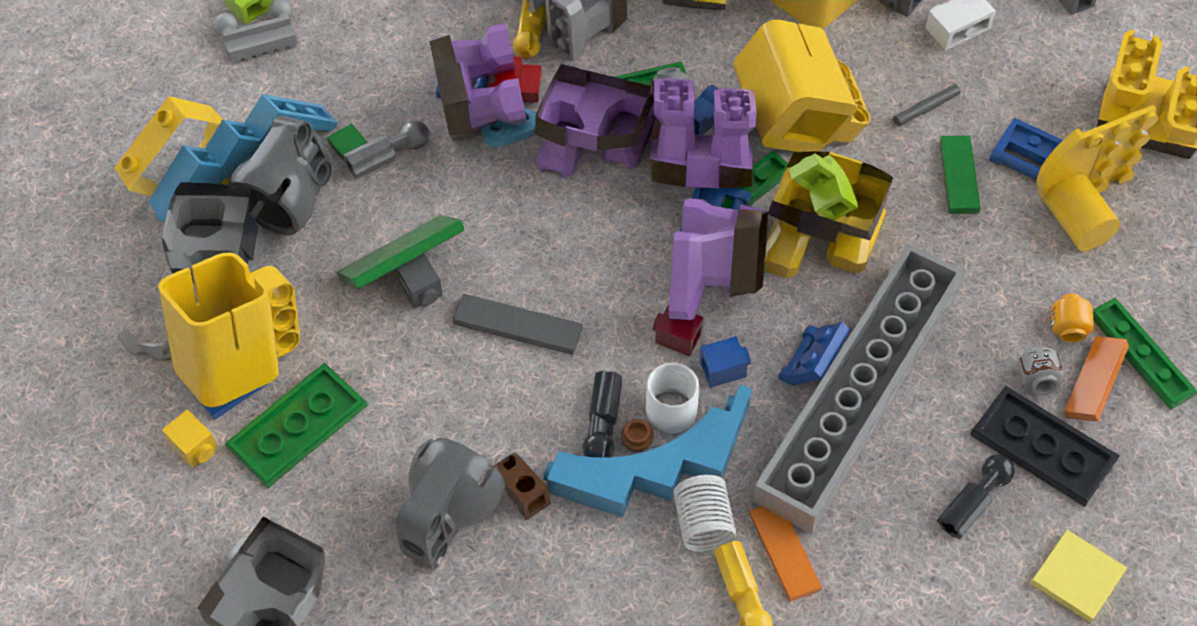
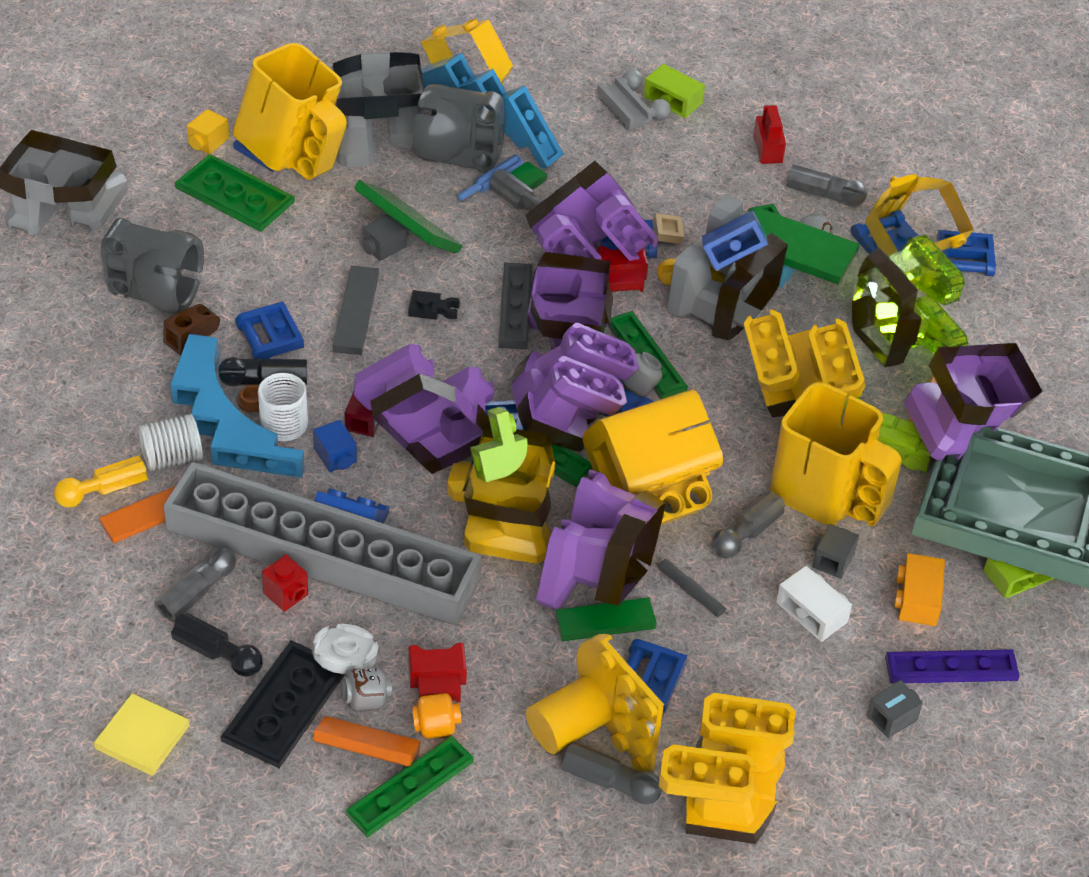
camera: 75 degrees right, 10 degrees down
(344, 175) = (482, 182): none -> medium blue axle
(464, 31) = (668, 228): none -> tan plate
(525, 257) = (430, 304): none -> black plate
(538, 398) = (278, 327): none -> blue plate
(540, 182) = (515, 306): none -> dark grey tile
(864, 48) = (749, 524): none -> flat silver piece
(894, 509) = (195, 583): none -> flat silver piece
(907, 423) = (285, 582): none -> red brick
(926, 129) = (601, 543): none -> medium lavender piece
(988, 384) = (344, 648): none -> white tile
(1022, 310) = (438, 670): none -> red piece
(1139, 192) = (610, 773): none -> dark grey piece

